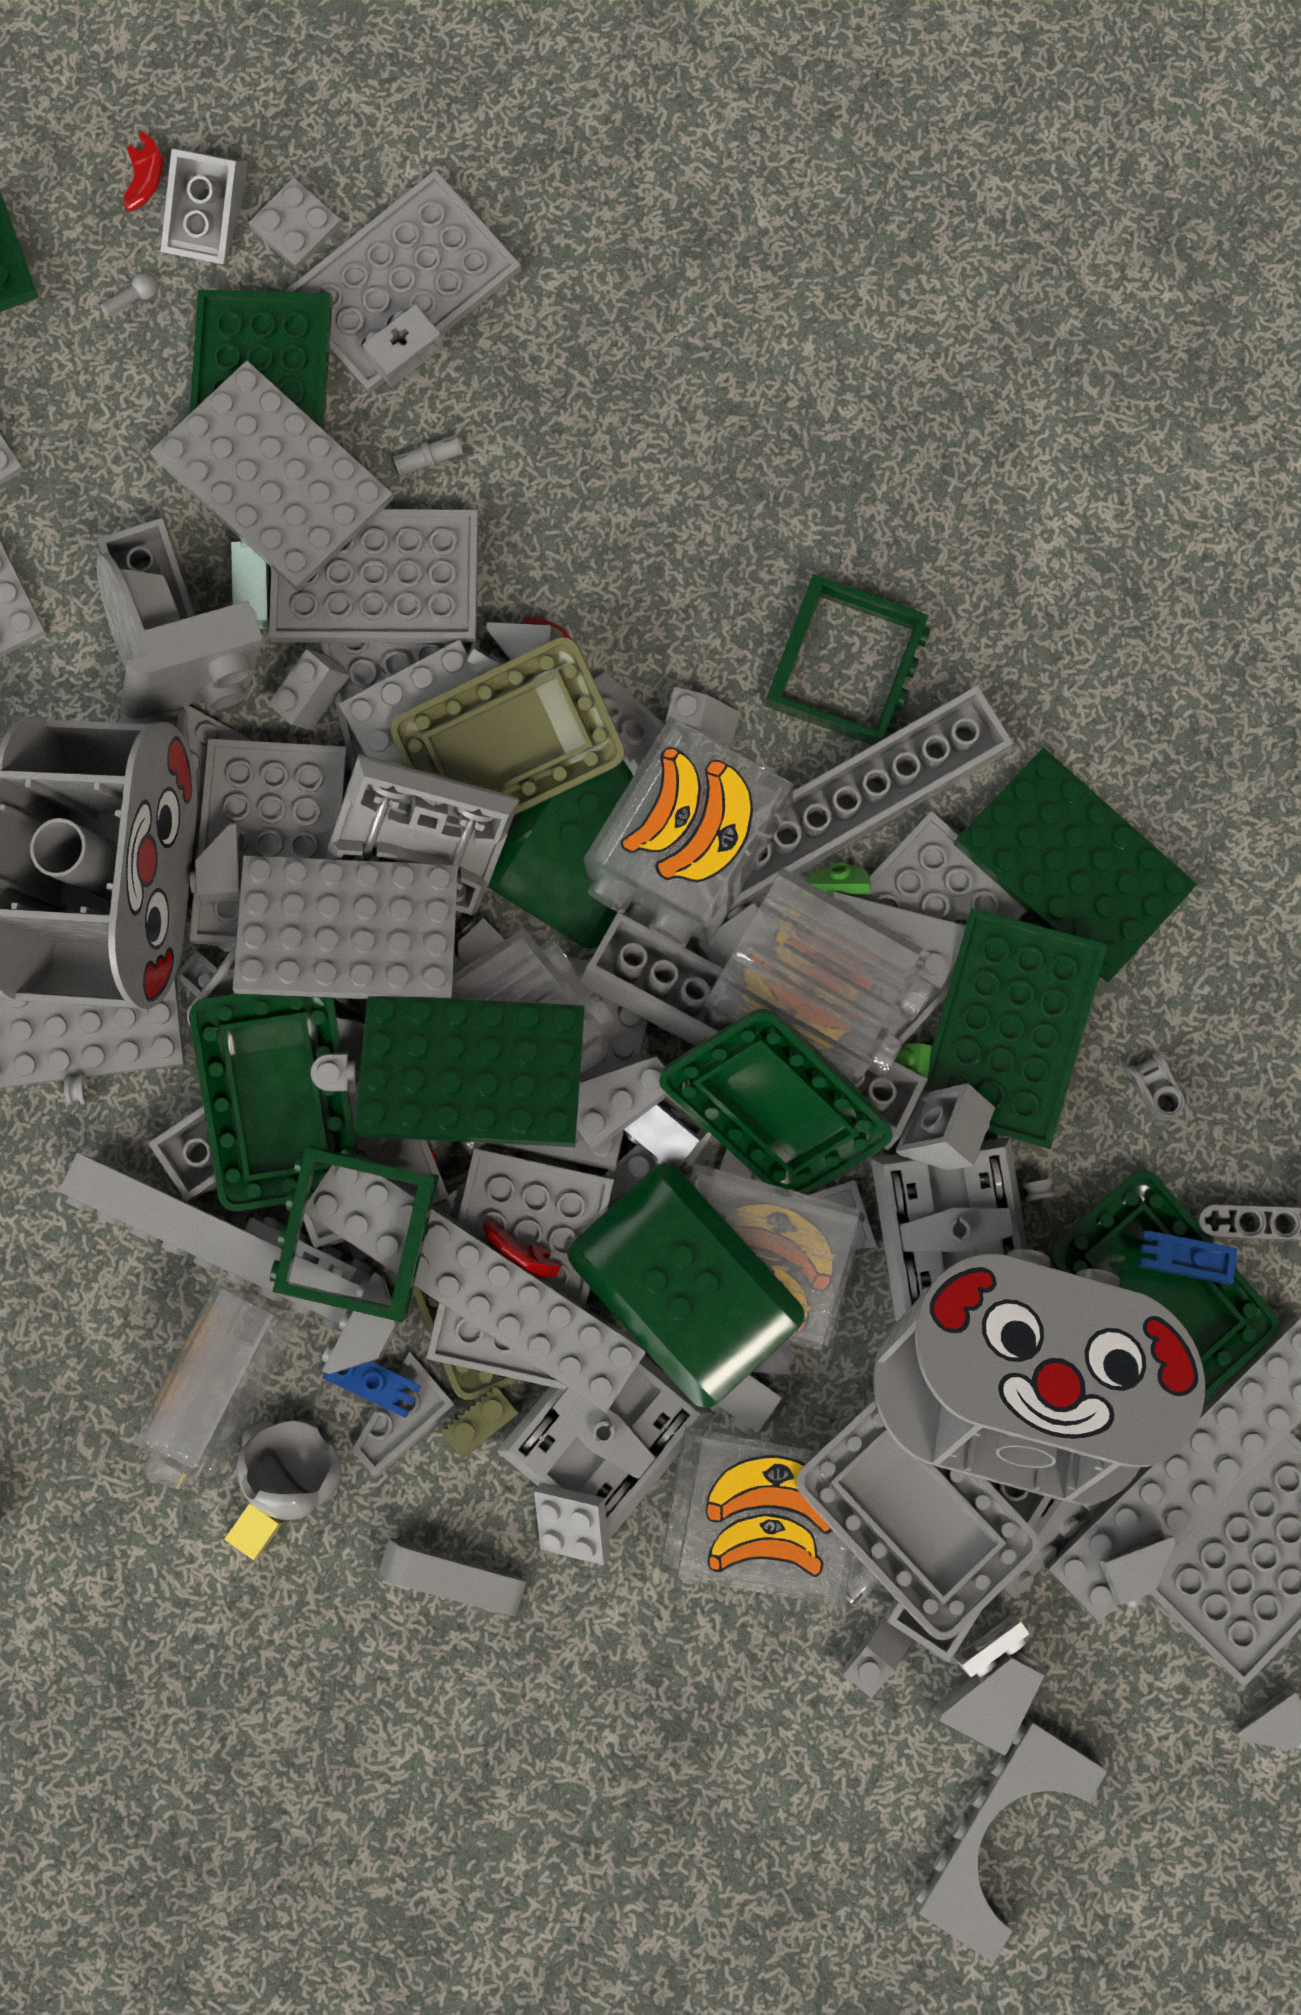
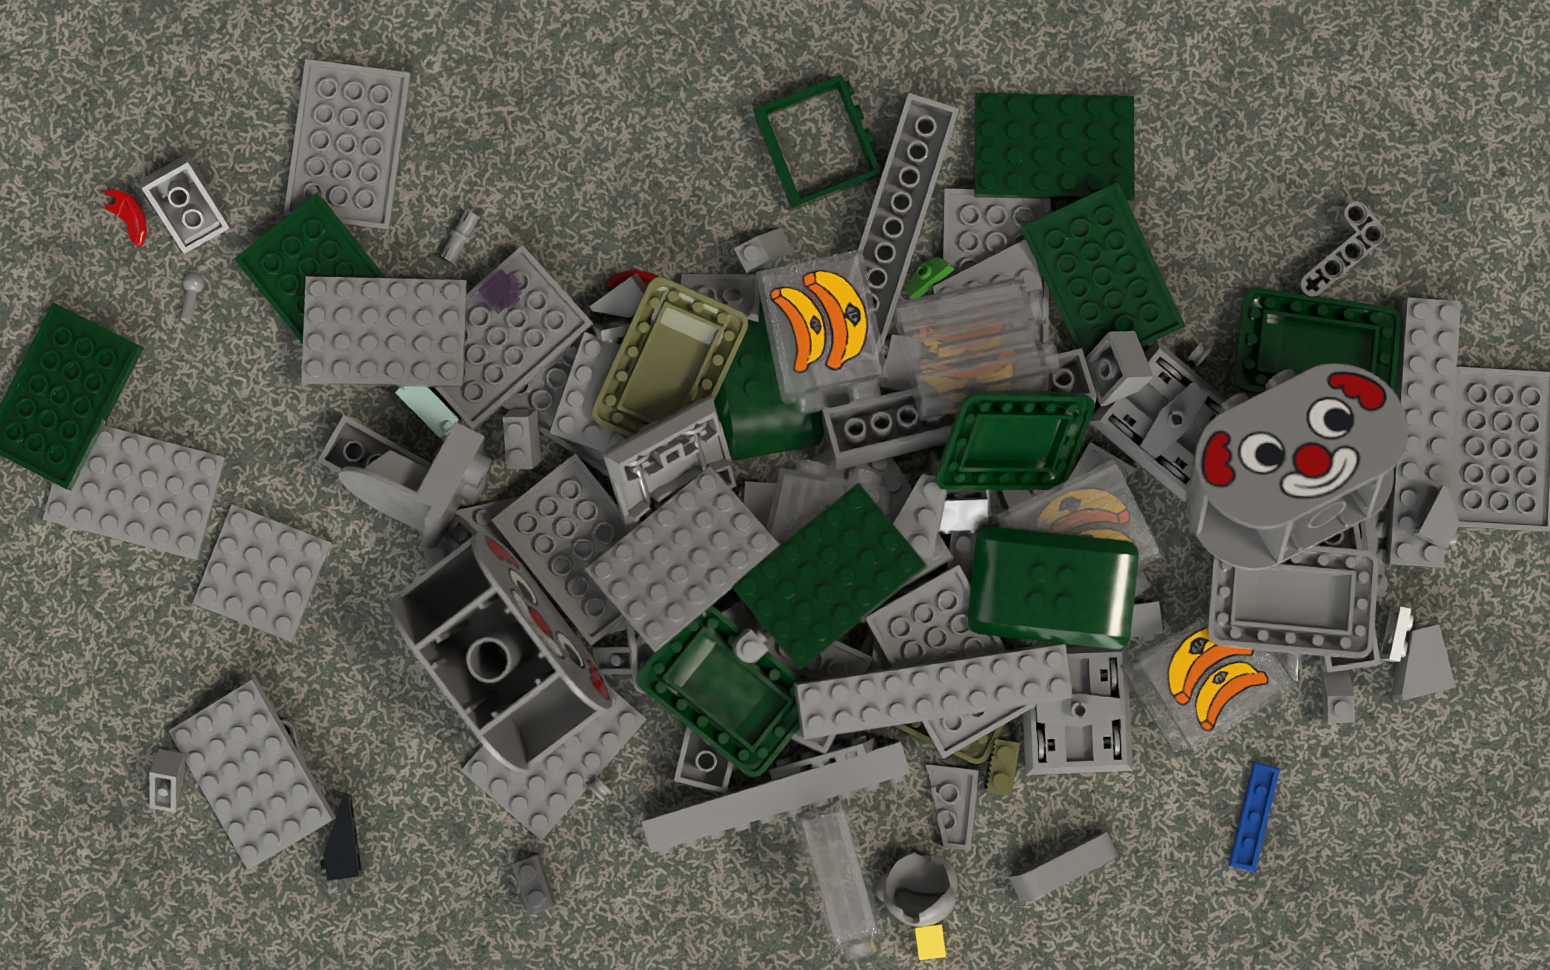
camera: 45 degrees left, 5 degrees up
(219, 868) = (572, 589): light grey slope -> none
(295, 223) = (249, 165): light grey plate -> none
(363, 1335) = (897, 772): light grey slope -> none
(376, 1385) = (919, 800): blue hinge -> none
(392, 358) = (392, 199): light grey brick -> none
(413, 1245) = (800, 735): dark green window -> none
(415, 531) = (501, 291): none -> clear purple brick
(530, 1258) = (953, 650): red piece -> none
(572, 1524) = (1105, 776): light grey plate -> none
(686, 1702) = (1254, 817): none -> blue tile
(915, 1057) = (1064, 341): bright green plate -> none
(1032, 1765) = (1492, 787): light grey arch -> none
(1155, 1085) = (1211, 235): light grey piece -> none
(1189, 1257) = (1316, 319): blue hinge -> none

